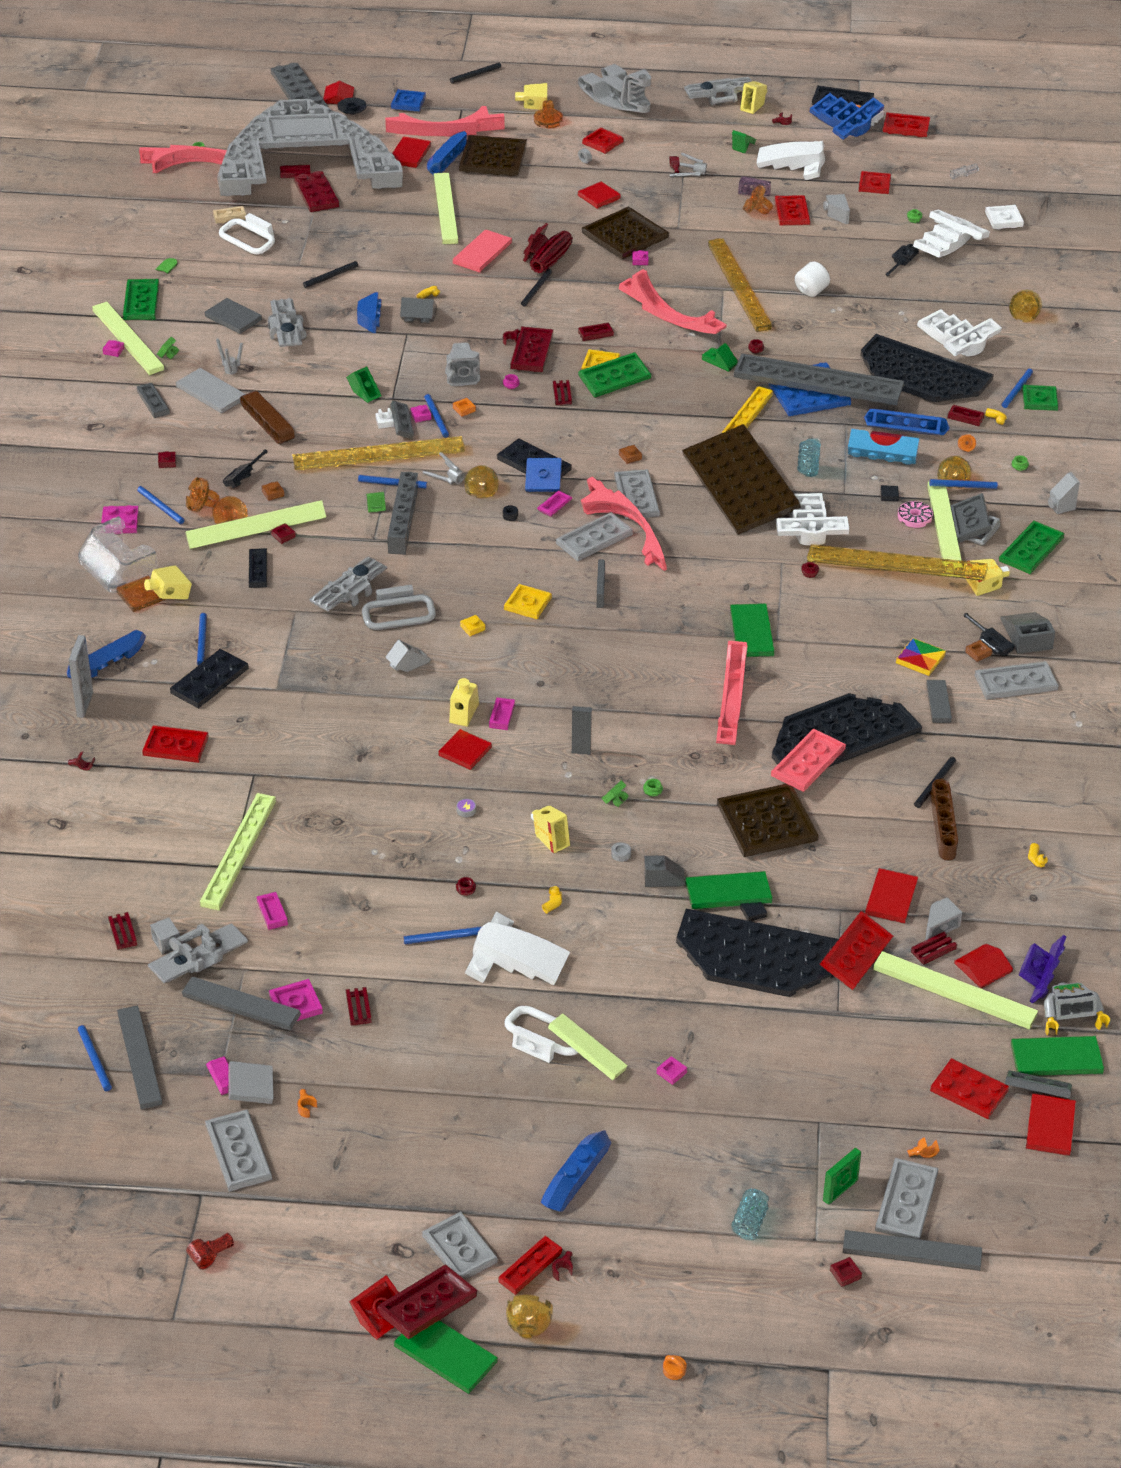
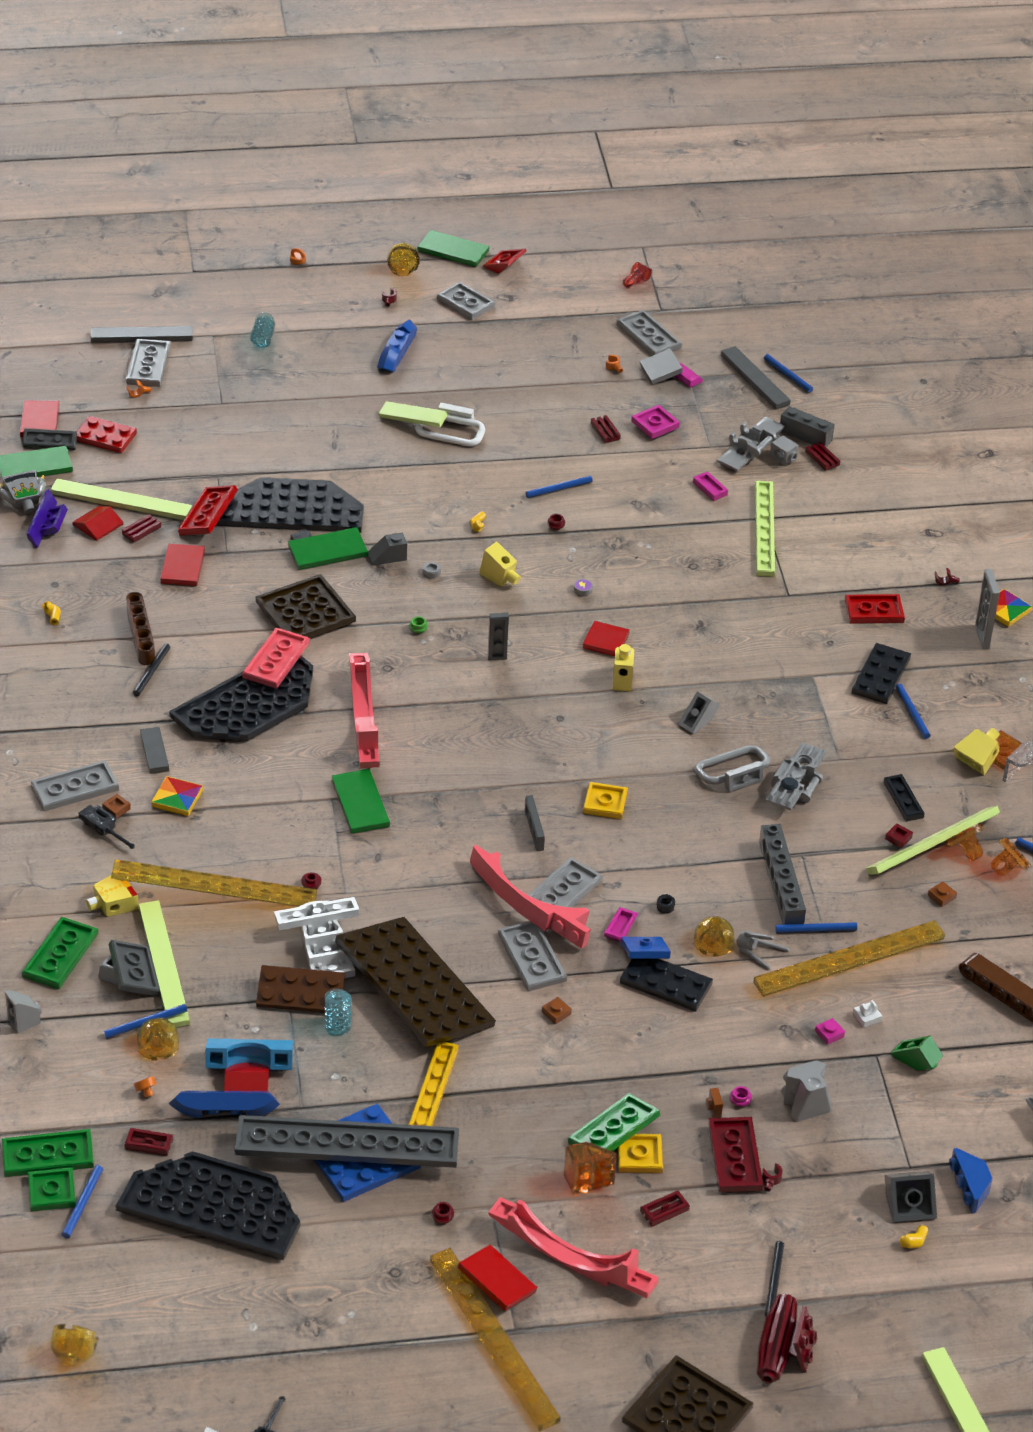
camera: 165 degrees right, 0 degrees up
(41, 725) = (1011, 608): none -> tile
(122, 960) = (807, 427): none -> dark grey brick
(124, 646) = (991, 671): blue brick -> none
(241, 1003) = (695, 411): dark grey tile -> none
(242, 472) = (987, 906): black piece -> none
(375, 502) = (820, 888): bright green tile -> none
(402, 419) = (846, 1012): dark grey tile -> none
(427, 1301) = (474, 259): dark red plate -> none
(436, 415) = (809, 1031): blue bar -> none
(464, 407) = (780, 1043): orange plate -> none
(472, 625) = (651, 764): yellow plate -> none
(482, 250) = (878, 1341): coral tile -> none
(502, 713) = (585, 677): dark pink tile -> none
(516, 950) = (495, 473): white slope -> none
(530, 1265) = (412, 292): red plate -> none
(534, 376) = (714, 1103): none -> dark orange plate
(561, 385) = (666, 1080): dark red tile -> none
(615, 793) = (451, 611): bright green tile -> none
(640, 257) = (649, 1366): dark pink plate -> none
(645, 341) = (589, 1167): none -> clear orange slope
(671, 1070) = (343, 413): dark pink plate -> none
(721, 357) = (486, 1185): green slope -> none
(729, 305) = (497, 1277): none -> red tile
(812, 279) = (389, 1342): white head -> none
(834, 487) = (296, 988): none -> reddish brown plate
(842, 1176) = (198, 352): green tile -> none
(845, 1271) = (188, 313): dark red plate -> none
(889, 493) = (234, 1001): black tile -> none
(923, 514) = (200, 966): tile -> none
(943, 917) = (135, 544): light grey slope -> none
(958, 335) = (169, 1274): white slope -> none
(999, 416) = (106, 1144): yellow arm -> none
(1020, 463) = (76, 1069): bright green plate -> none
(1029, 632) = (63, 831): dark grey slope -> none
(1043, 418) = (47, 1152): none -> green tile

